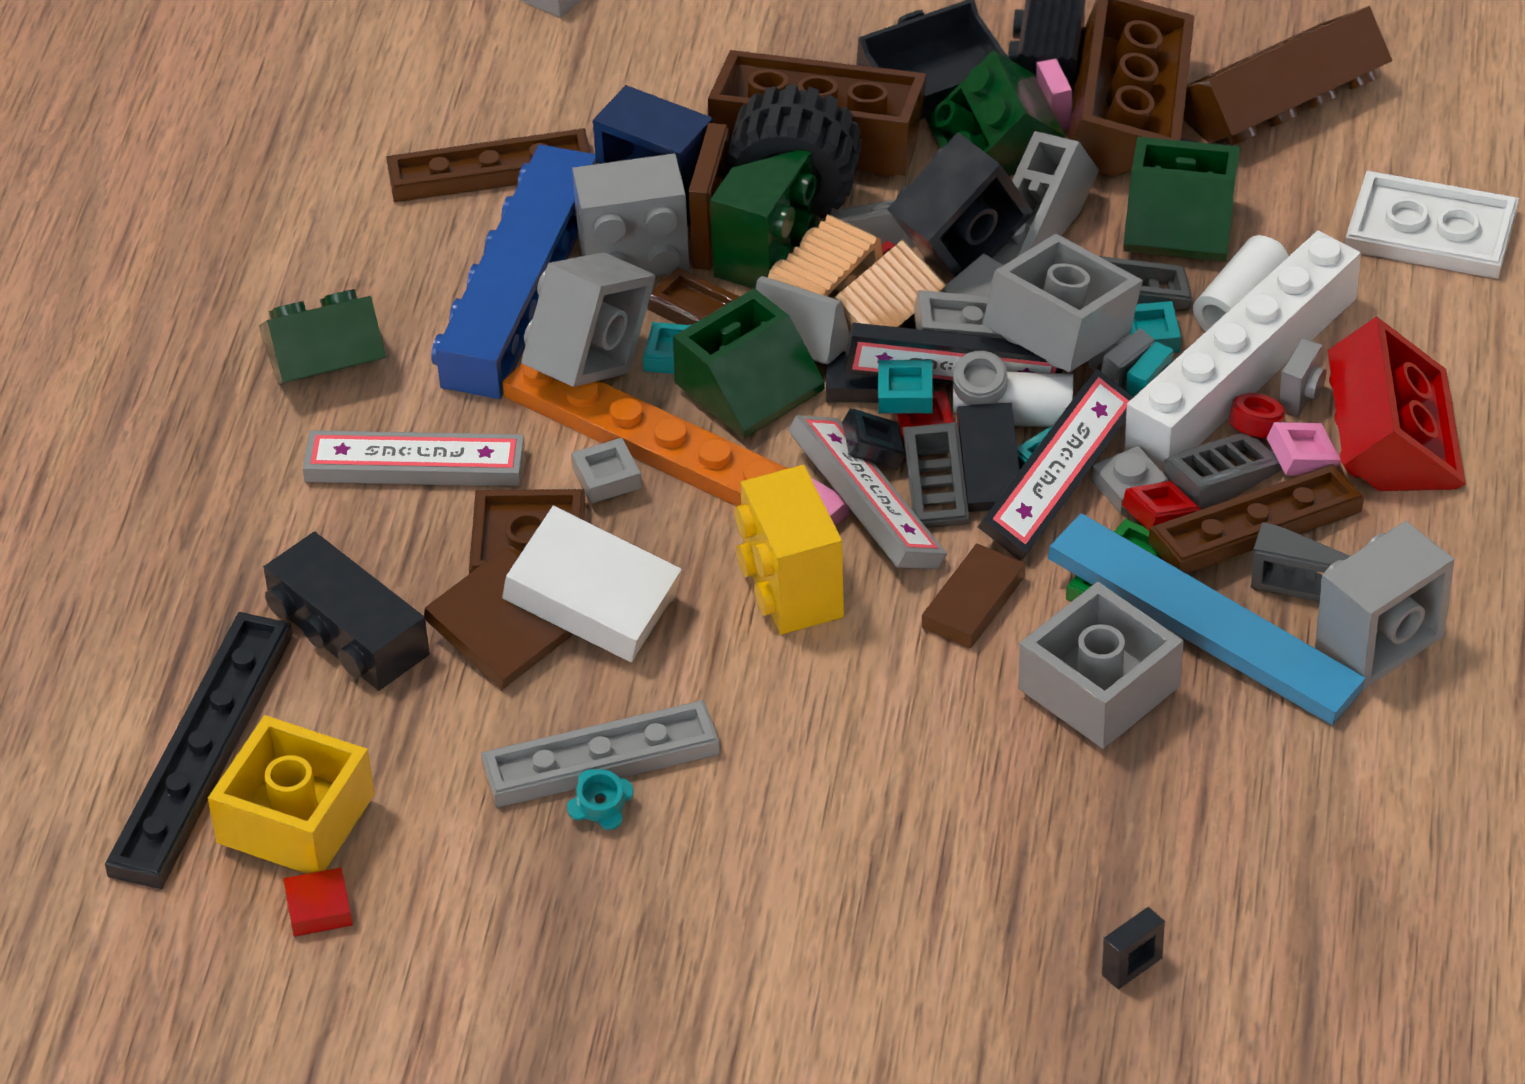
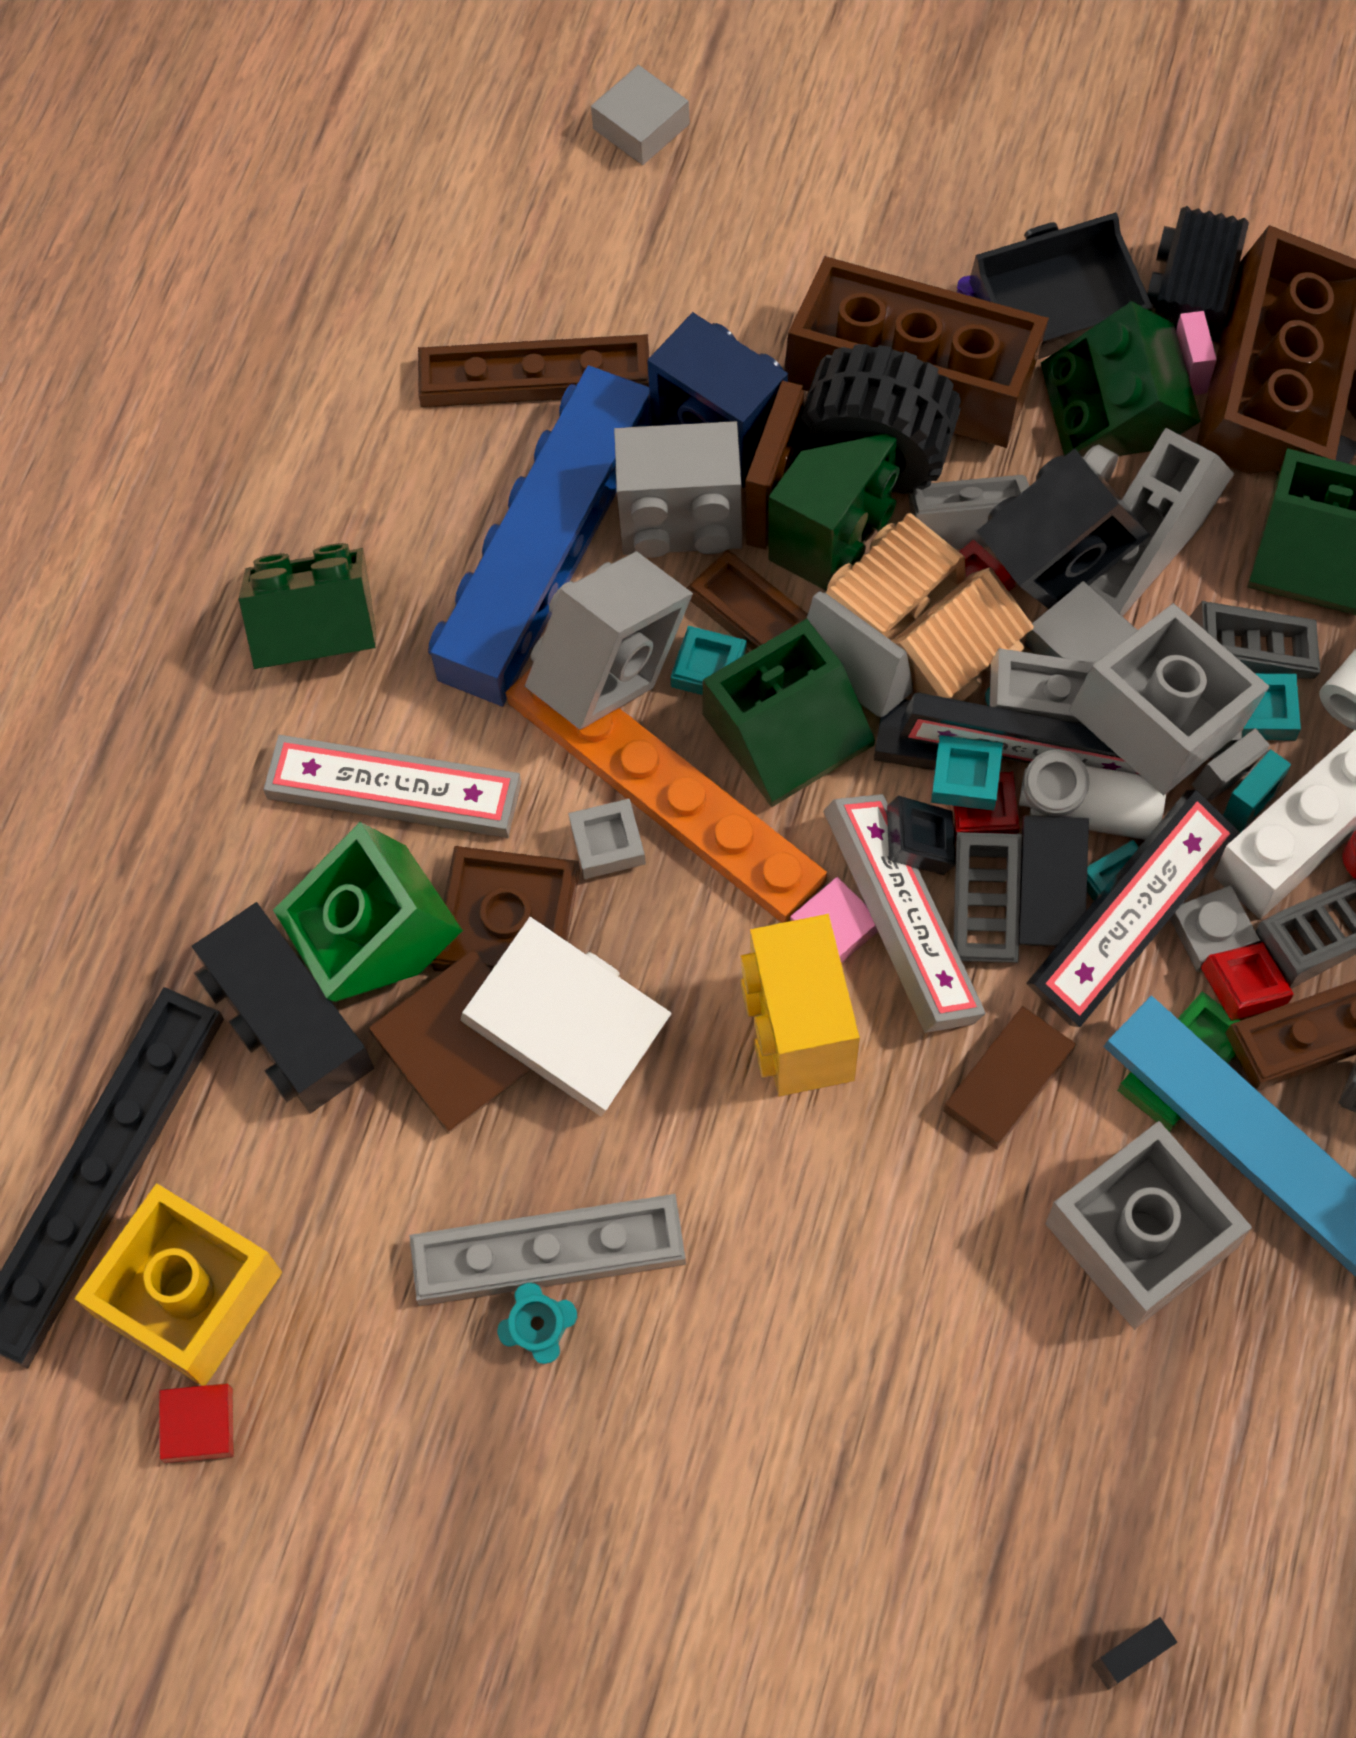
camera: 10 degrees right, 20 degrees up
(411, 531) = (366, 916): none -> green slope

